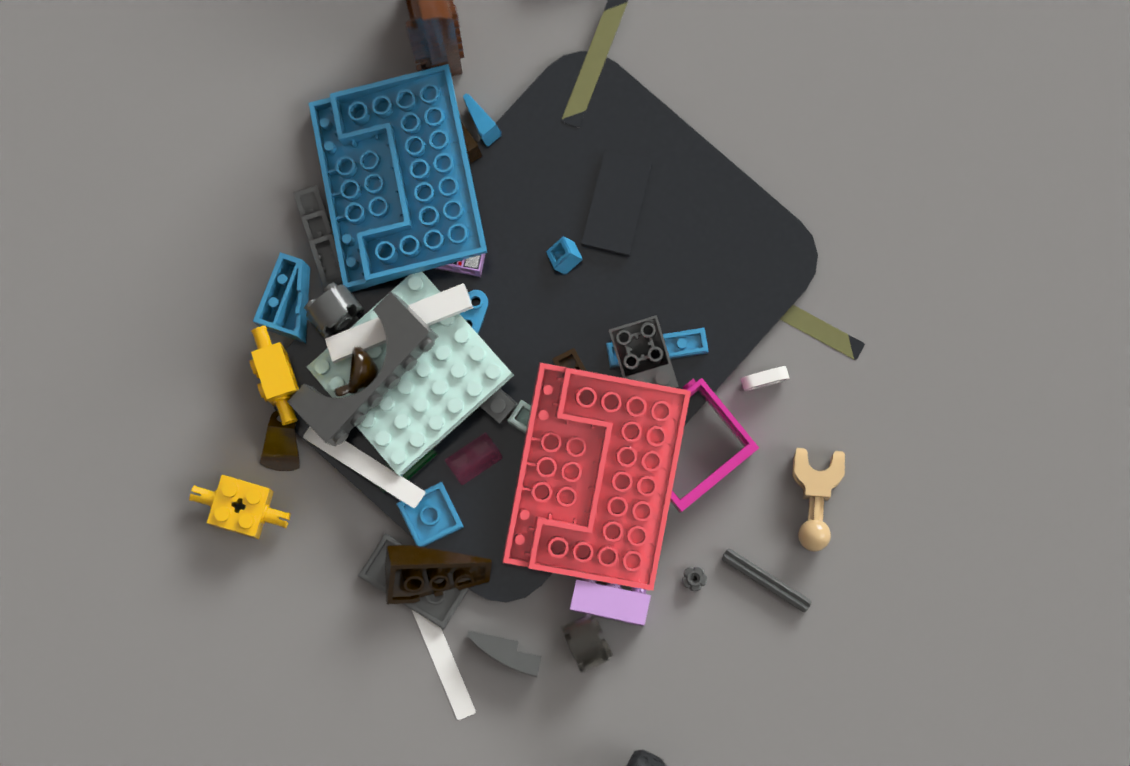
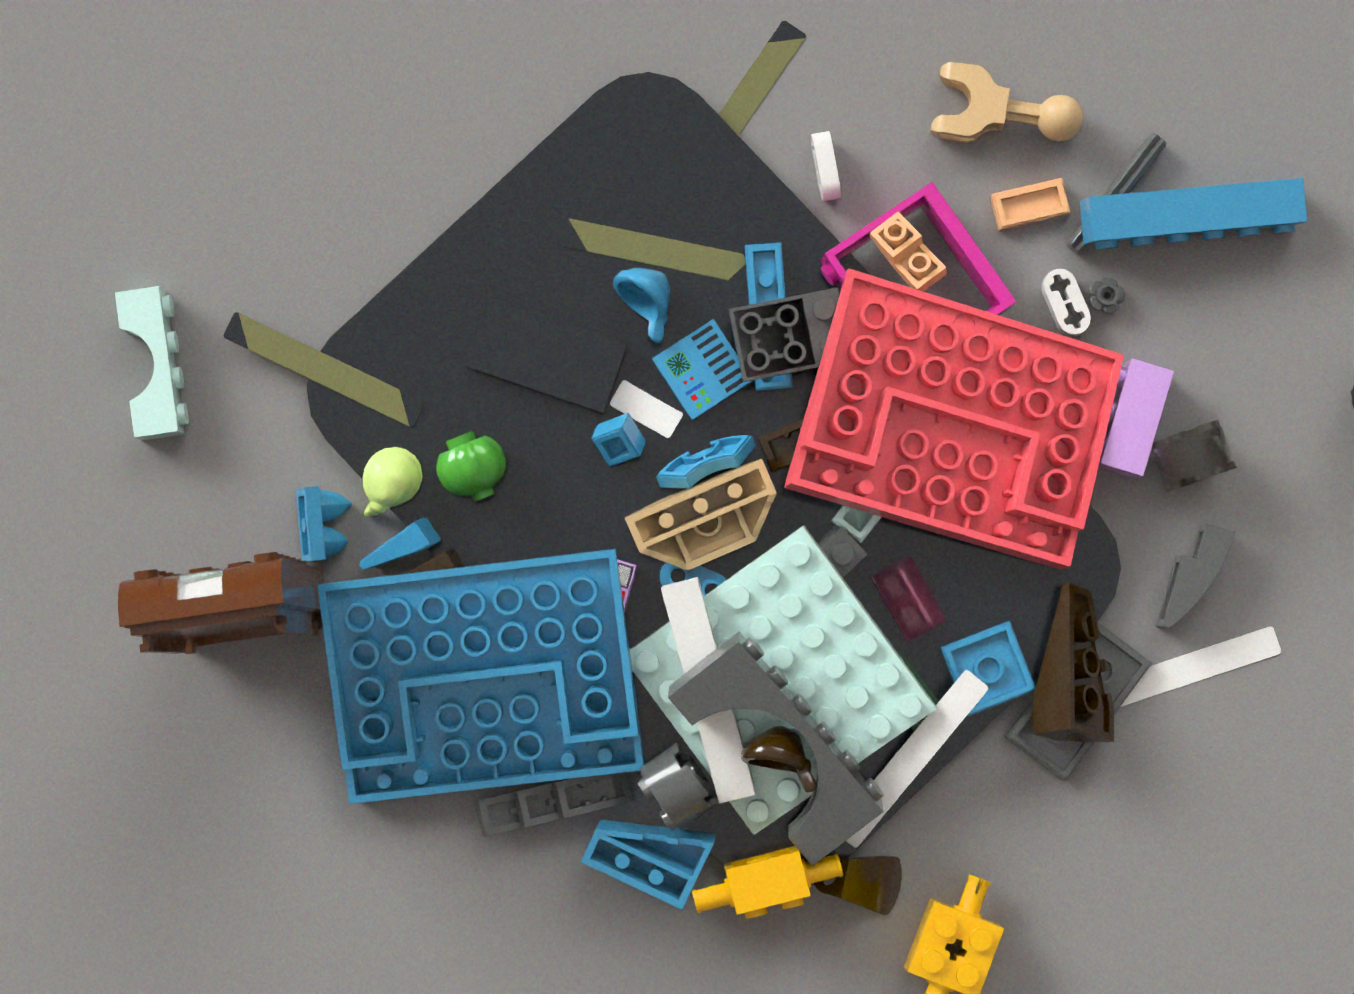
camera: 90 degrees left, 5 degrees up
(502, 65) = (313, 509): none -> dark azure tile
(514, 313) = (706, 518): none -> tan wedge
(525, 109) = (390, 479): none -> yellowish green hat
(537, 160) = (471, 466): none -> bright green plant
(548, 302) = (722, 454): none -> dark azure tile
(587, 272) = (646, 409): none -> white sticker
(616, 304) = (701, 369): none -> dark azure tile
(664, 265) = (647, 294): none -> dark azure hat
(690, 556) = (1058, 306): none -> white beam
(696, 266) = (650, 249): none -> olive sticker
(707, 434) = (907, 253): none -> light nougat slope
(753, 521) = (1030, 204): none -> light nougat tile
(758, 632) = (1192, 212): none -> dark azure brick

